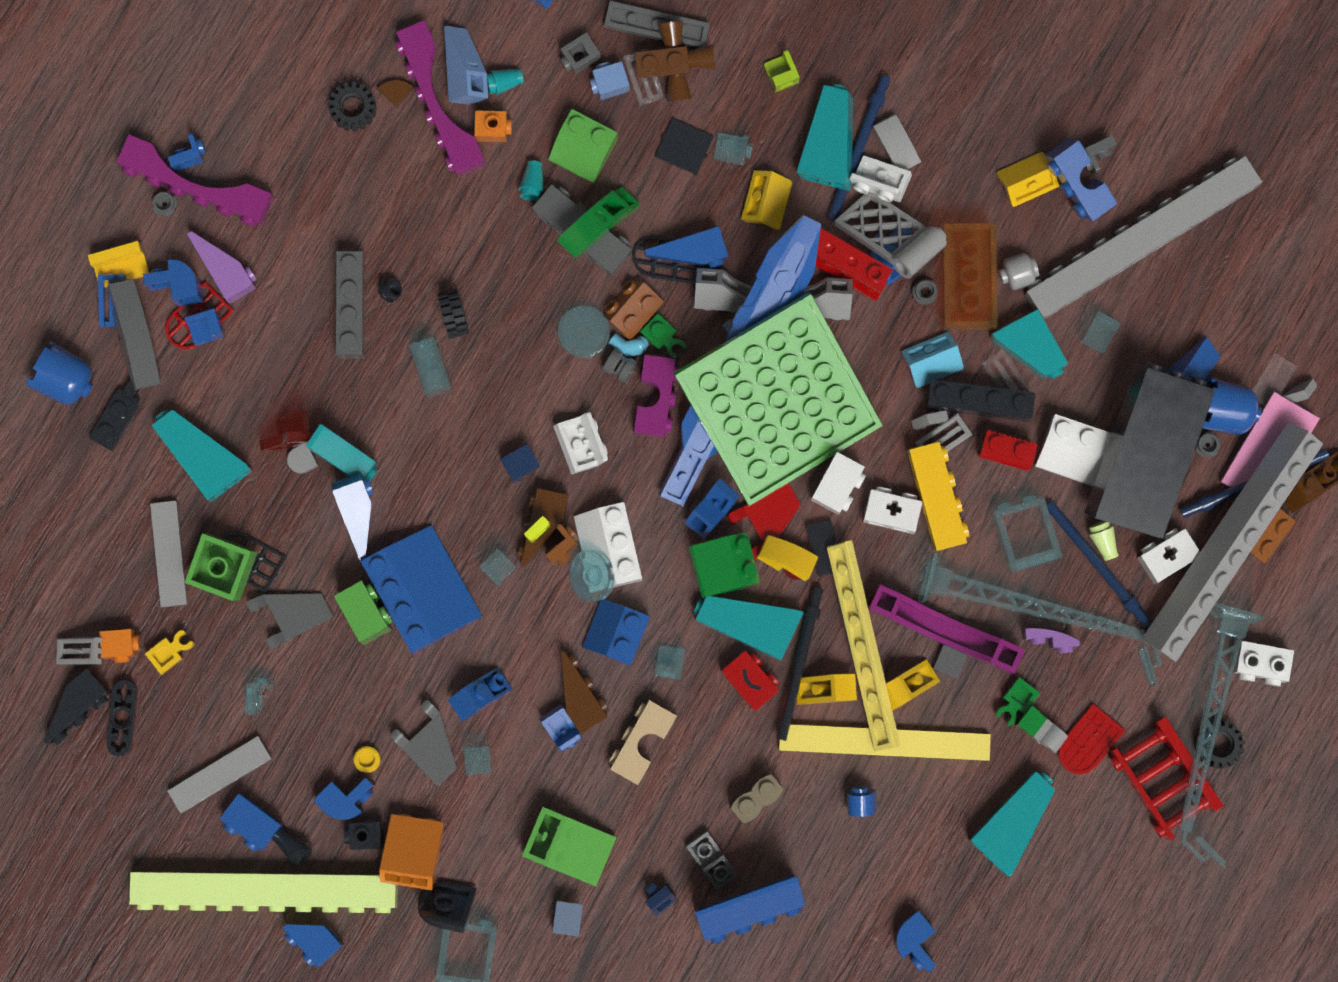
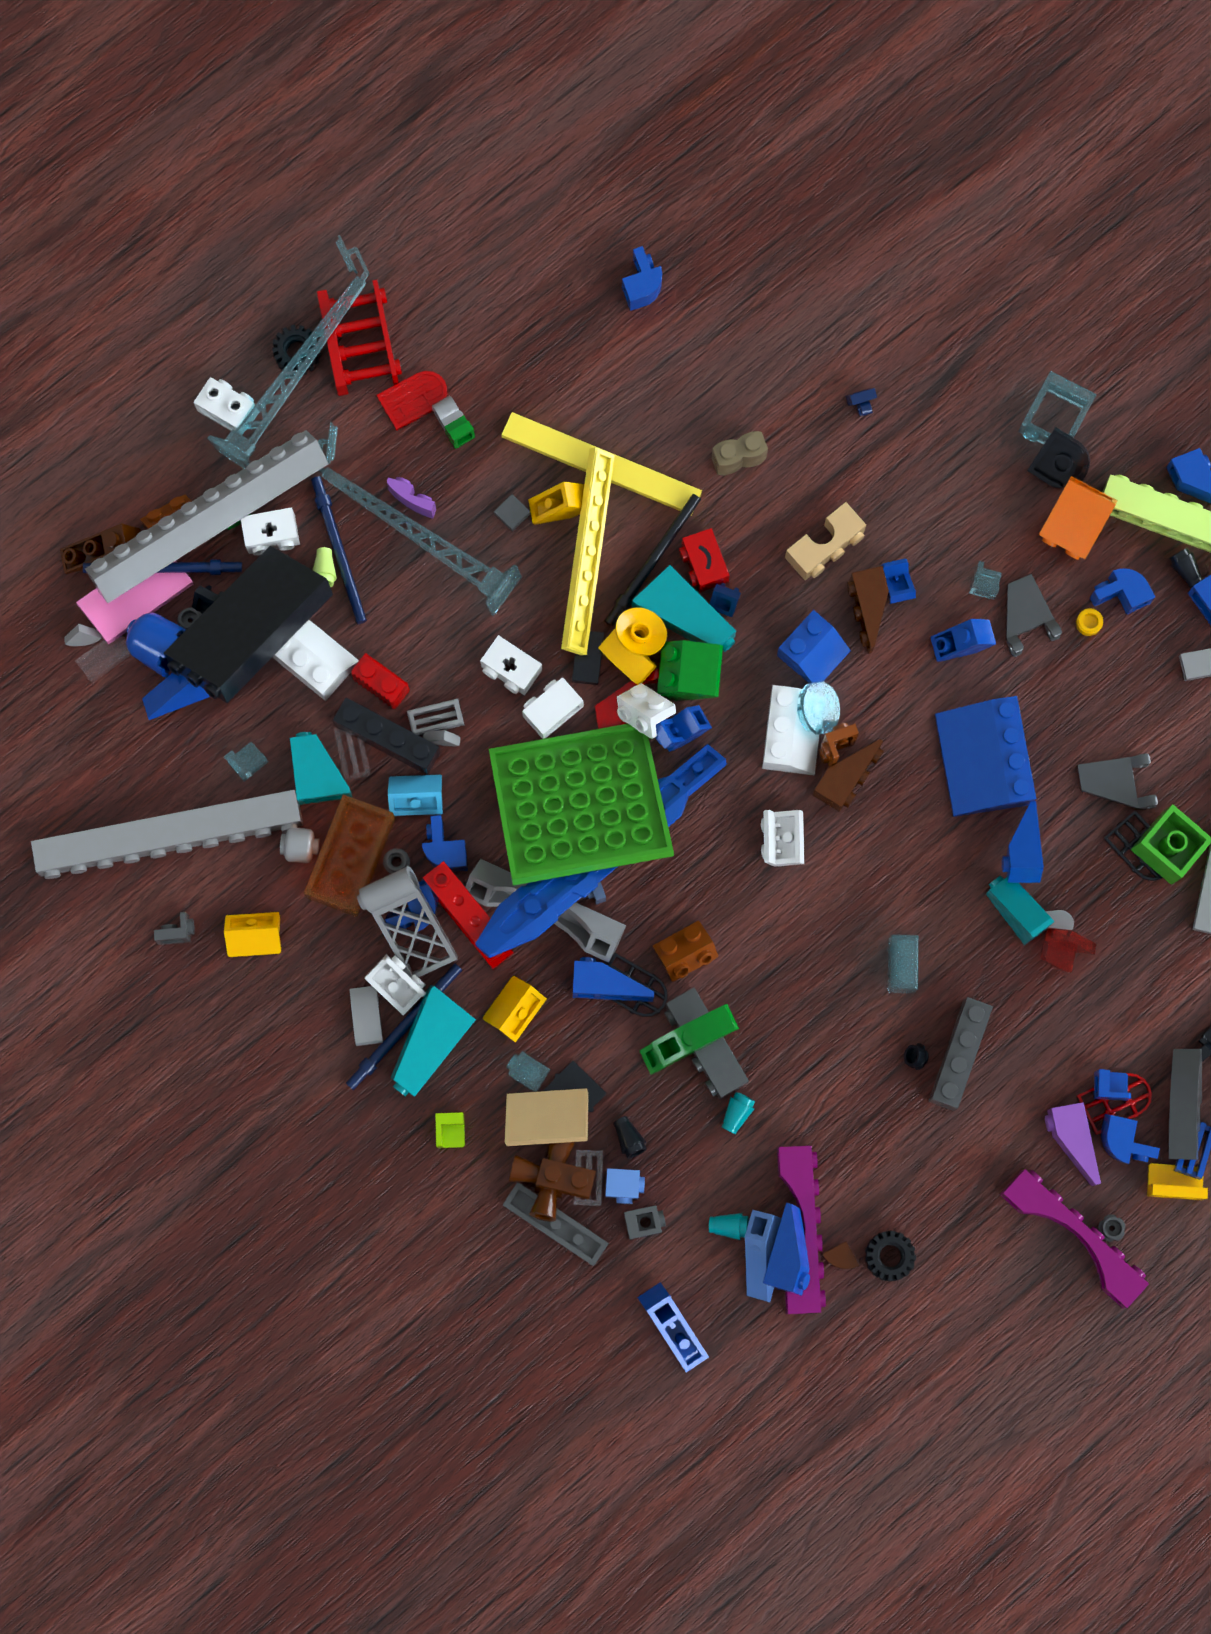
camera: 160 degrees left, 5 degrees down
(187, 158) = (1078, 1266): blue bracket -> none
(203, 459) = (1157, 962): teal slope -> none
(254, 699) = (1179, 712): clear light blue bracket -> none
(363, 612) = (1049, 750): bright green brick -> none
(374, 836) = (1109, 557): black brick -> none
(440, 64) = (789, 1257): none -> blue slope
(453, 313) = (863, 1006): black tyre -> none
(492, 126) = (757, 1182): orange brick -> none
(497, 567) = (906, 748): clear light blue panel -> none
(520, 463) = (849, 839): dark blue panel -> none
(537, 529) = (857, 763): neon yellow tile -> none
(568, 918) = (953, 410): sand blue panel -> none
(569, 846) = (930, 474): bright green slope -> none
(583, 146) = (674, 1127): bright green slope -> none
(583, 331) = (741, 944): clear light blue tile -> none
(619, 122) = (629, 1138): none -> black cone
(625, 368) = (714, 893): dark grey wheel -> none
(629, 348) = (703, 913): medium azure arm -> none
(654, 420) = (704, 834): magenta arch -> none
(661, 334) = (667, 916): green plate -> none
(670, 662) = (773, 604): clear light blue panel -> none
(699, 111) = (546, 1117): none -> tan tile
(711, 860) = (801, 418): dark grey slope -> none
(718, 649) = (725, 599): none -> dark blue tile
(750, 908) = (783, 361): blue slope -> none
(752, 511) = (644, 709): none -> white bracket
(782, 594) = (644, 623): none -> yellow dish
(827, 689) = (635, 526): yellow slope -> none
(861, 801) = (644, 415): blue plate -> none
(885, 312) = (438, 850): none -> blue brick
(937, 496) = (464, 663): yellow brick -> none
(945, 630) = (480, 515): magenta arch -> none
(1011, 826) = (513, 348): teal slope -> none
(1019, 698) = (462, 456): green plate -> none
(1032, 560) = (394, 573): clear light blue window -> none
(1067, 163) = (208, 927): arch -> none
(1200, 466) = (204, 598): none -> black tile

